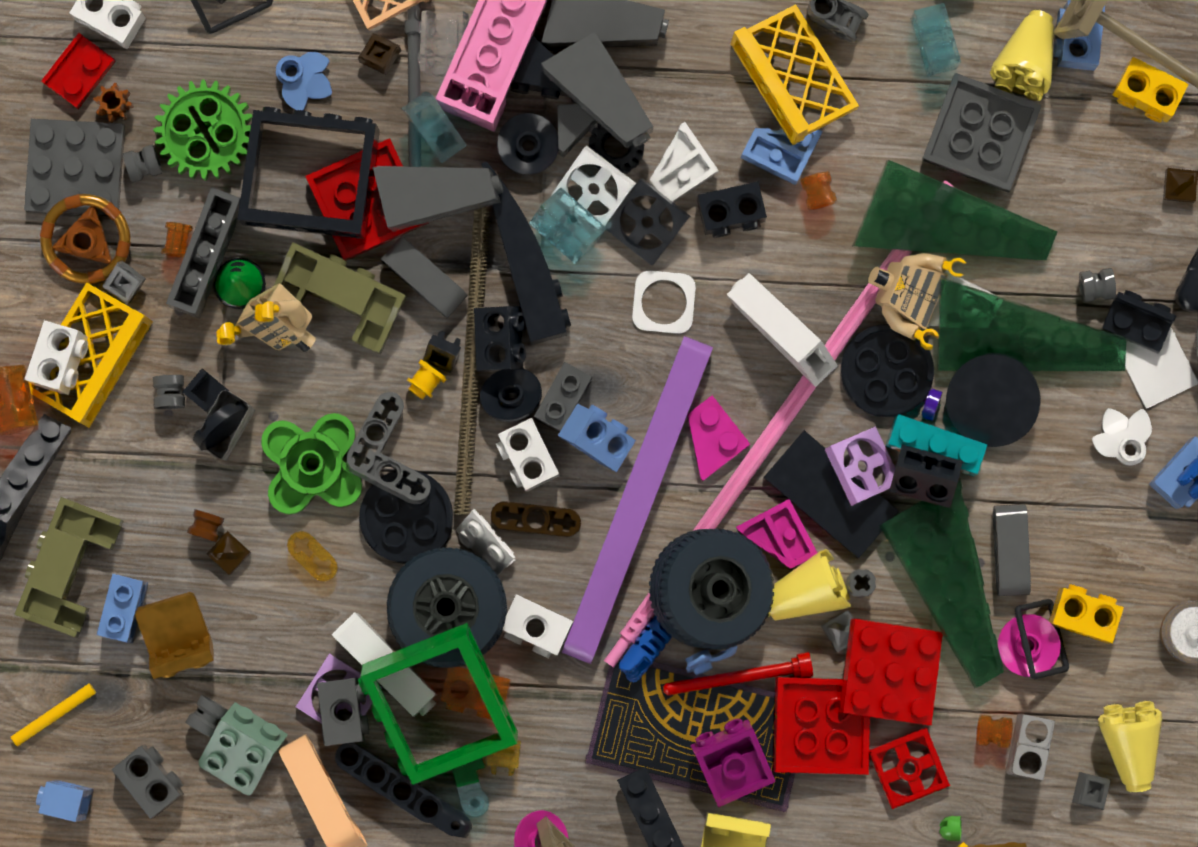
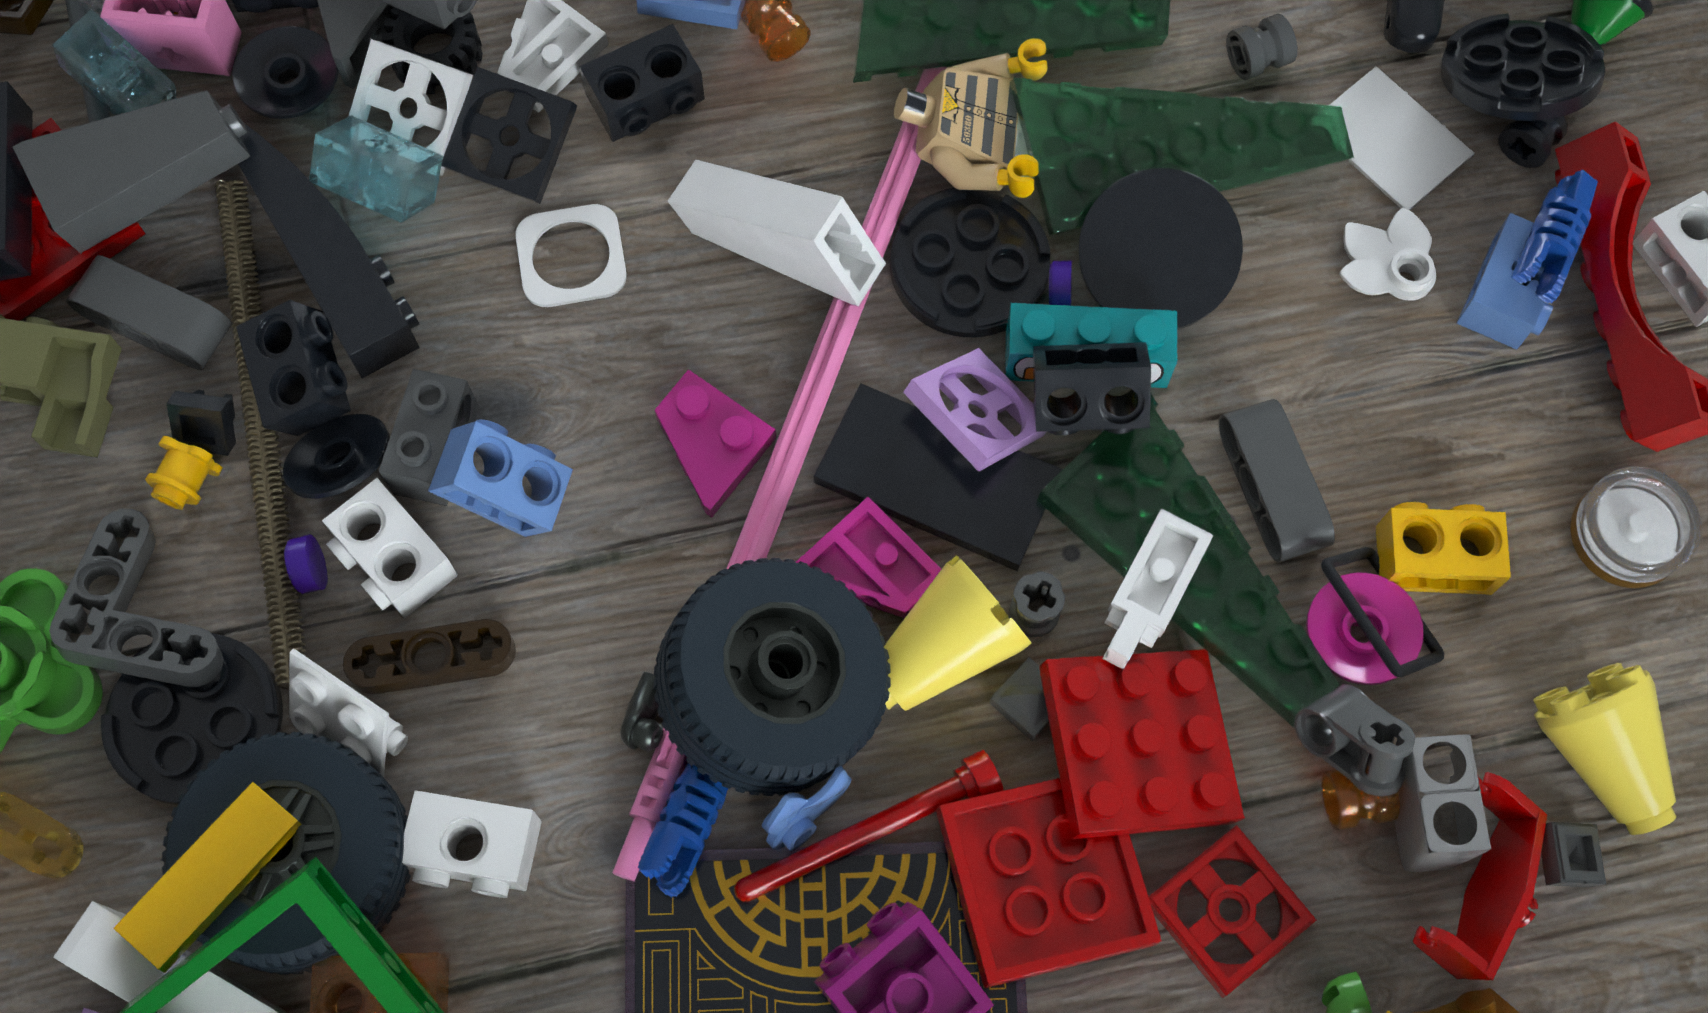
camera: 15 degrees left, 15 degrees down
(412, 616) = (207, 877): none -> yellow tile
(482, 451) = (305, 564): none -> dark purple tile
(637, 500) = (599, 591): medium lavender beam -> none
(637, 582) = (639, 726): none -> pearl dark grey arm
(923, 595) = (1154, 585): none -> white hinge
(999, 704) = (1354, 733): none -> dark grey piece
(1045, 798) = (1498, 890): none -> red piece
(1139, 321) = (1349, 75): black bracket -> none

